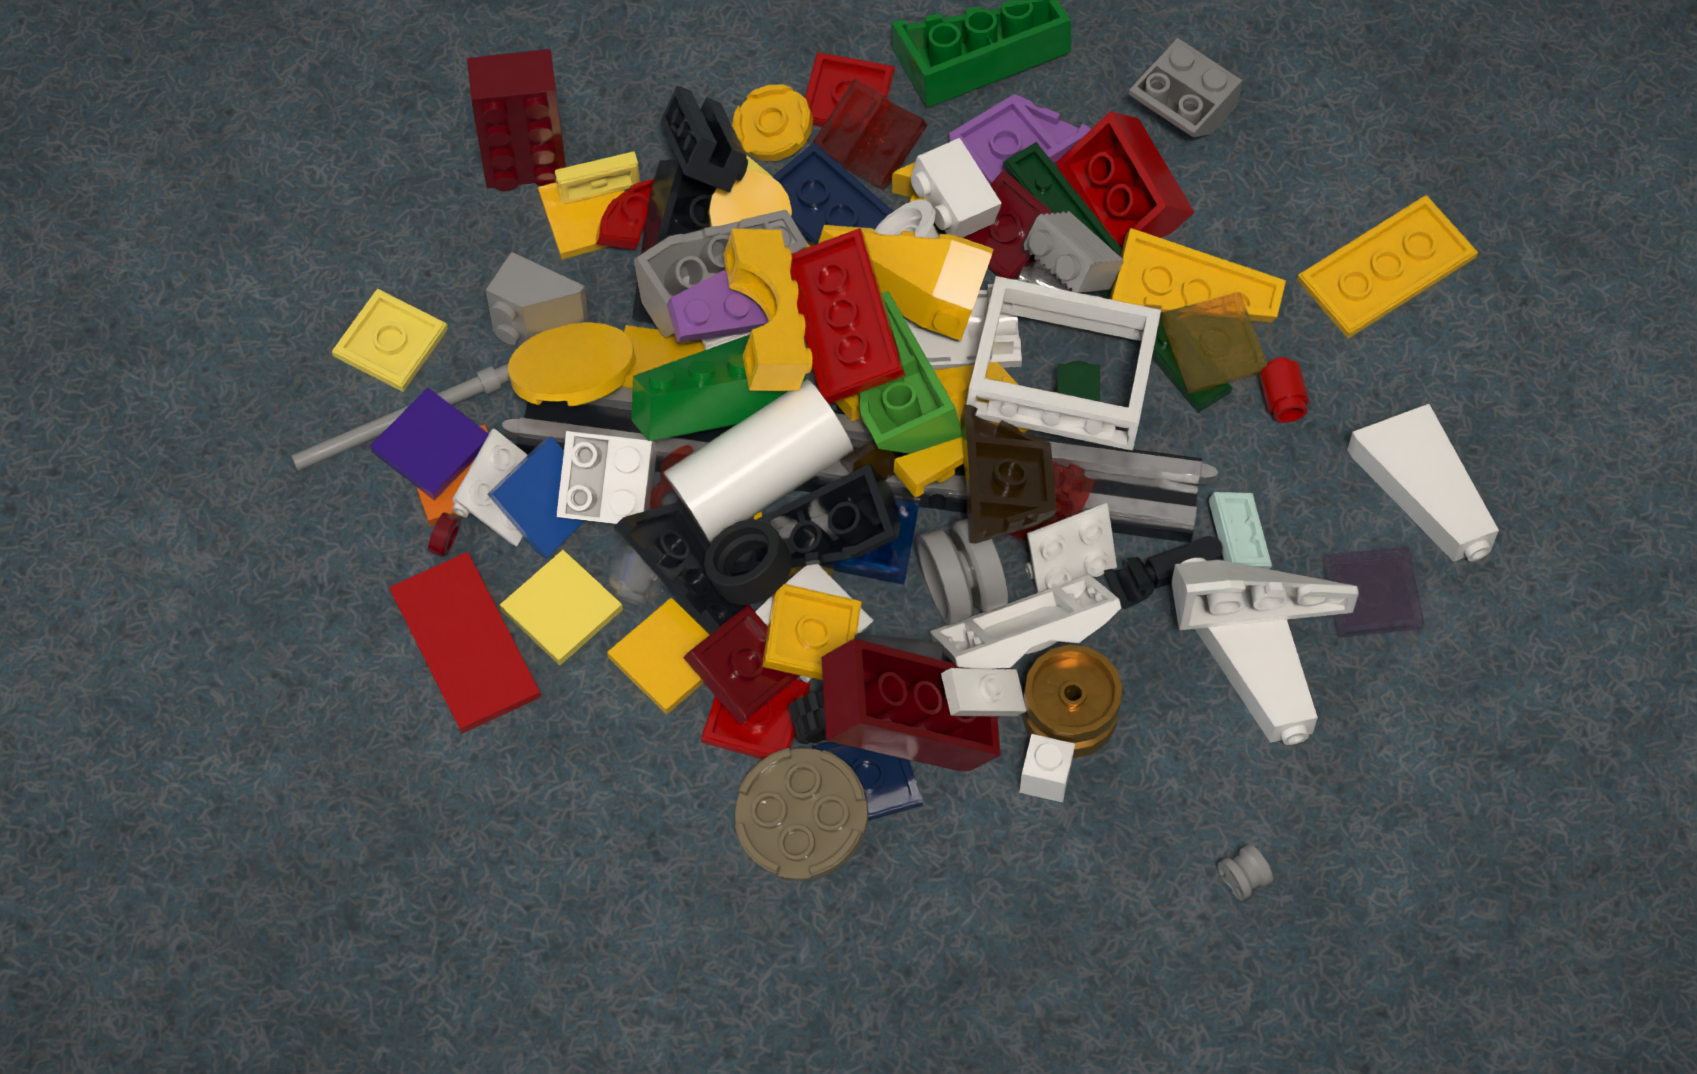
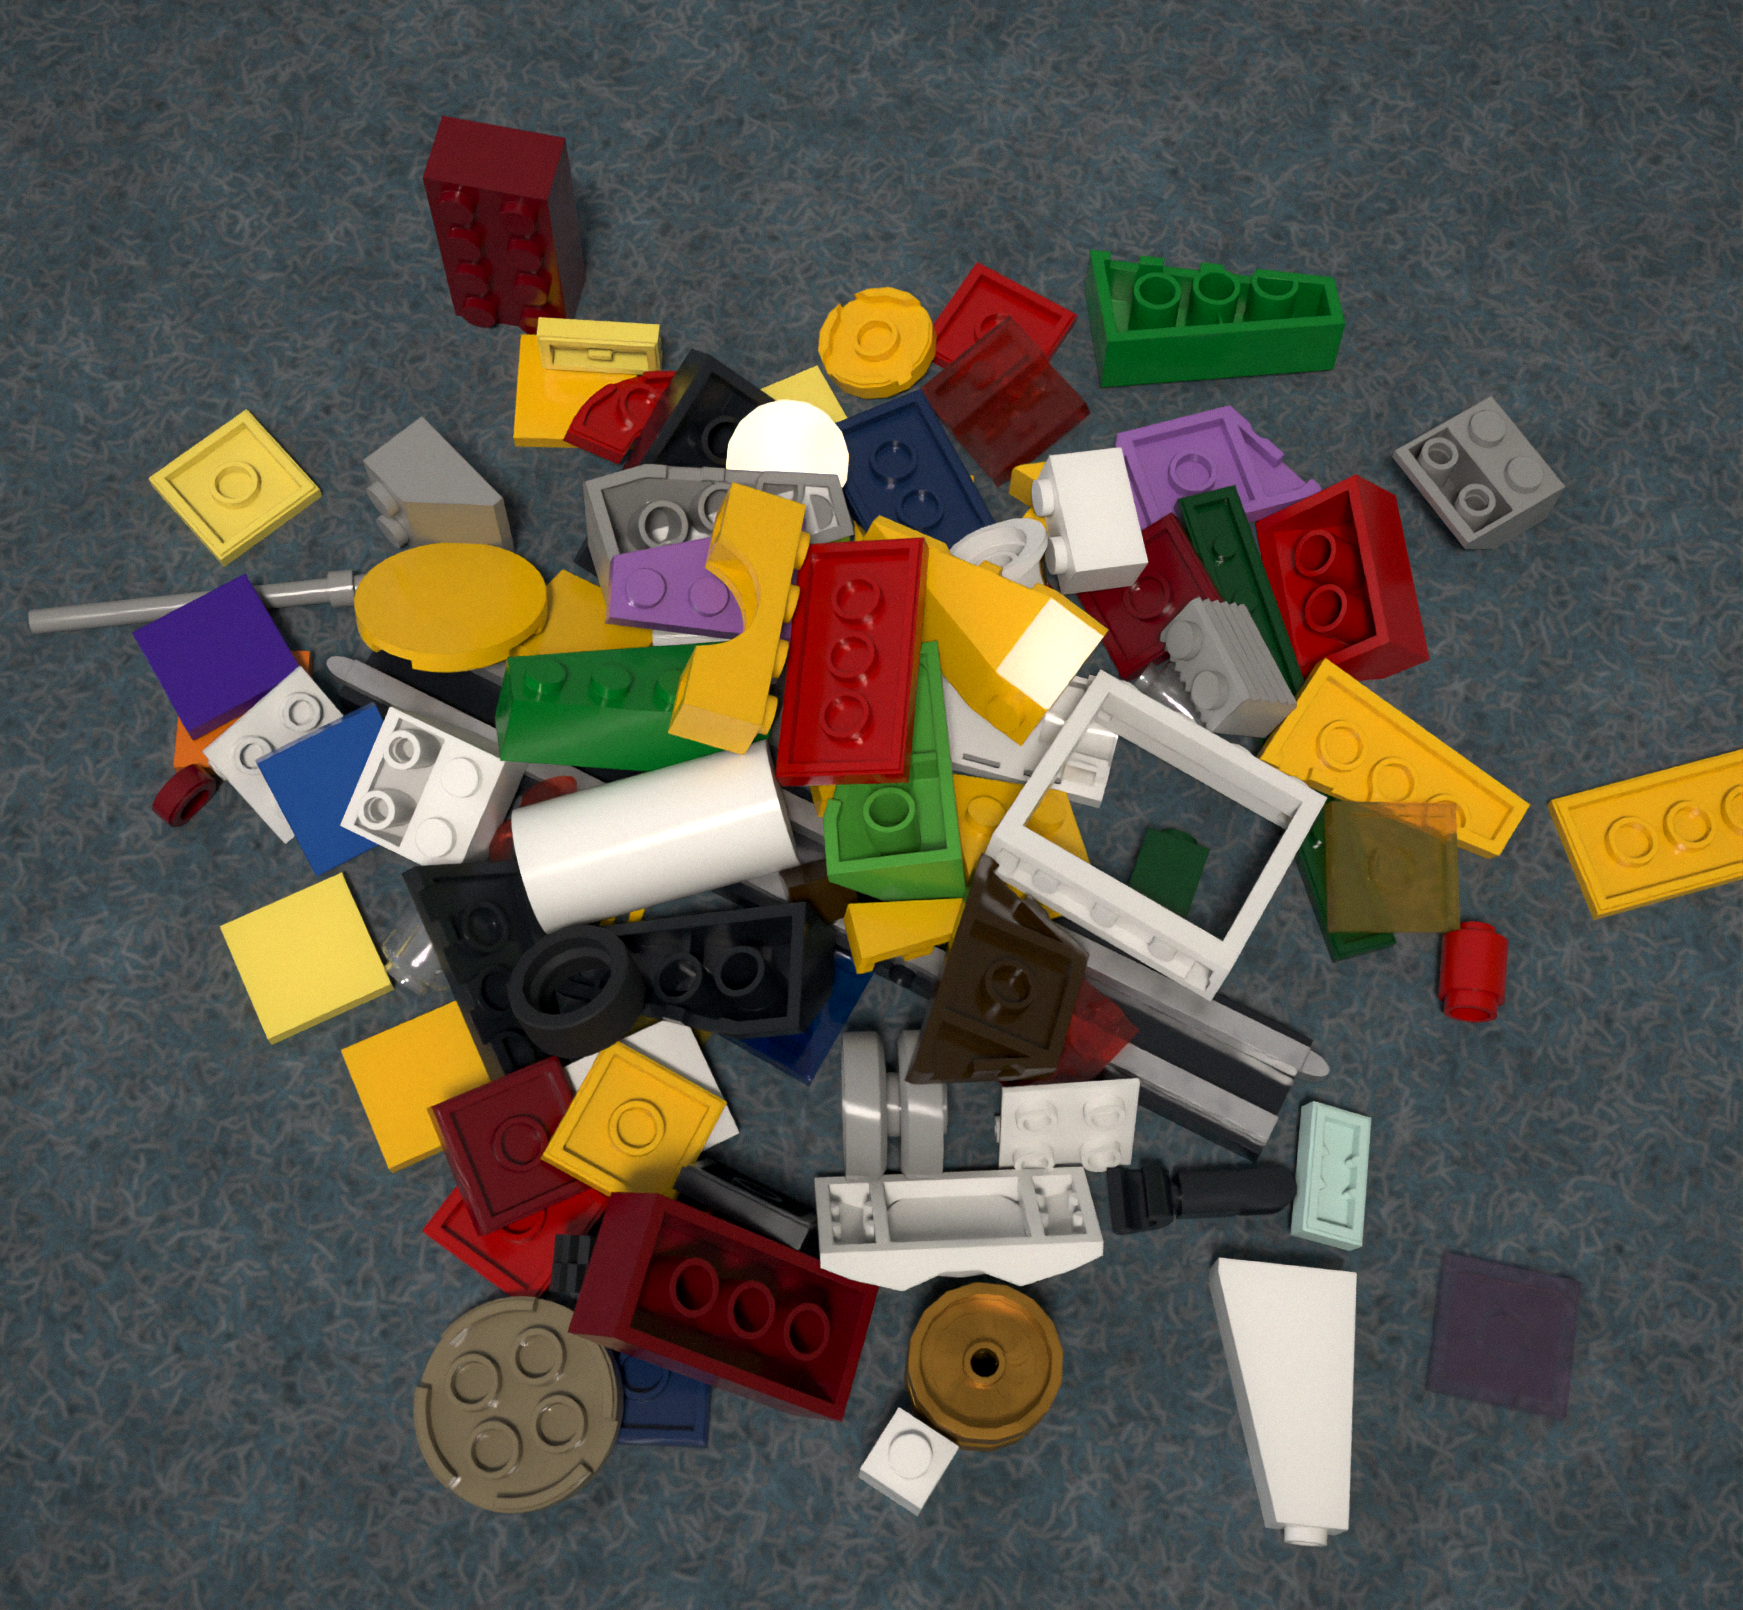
camera: 15 degrees right, 5 degrees up
(464, 642) = (150, 967): red tile -> none
(704, 140) = (757, 342): black brick -> none
(983, 692) = (846, 1318): white plate -> none
(1236, 593) = (1284, 1287): white wedge -> none
(1426, 478) = (1646, 1189): white slope -> none

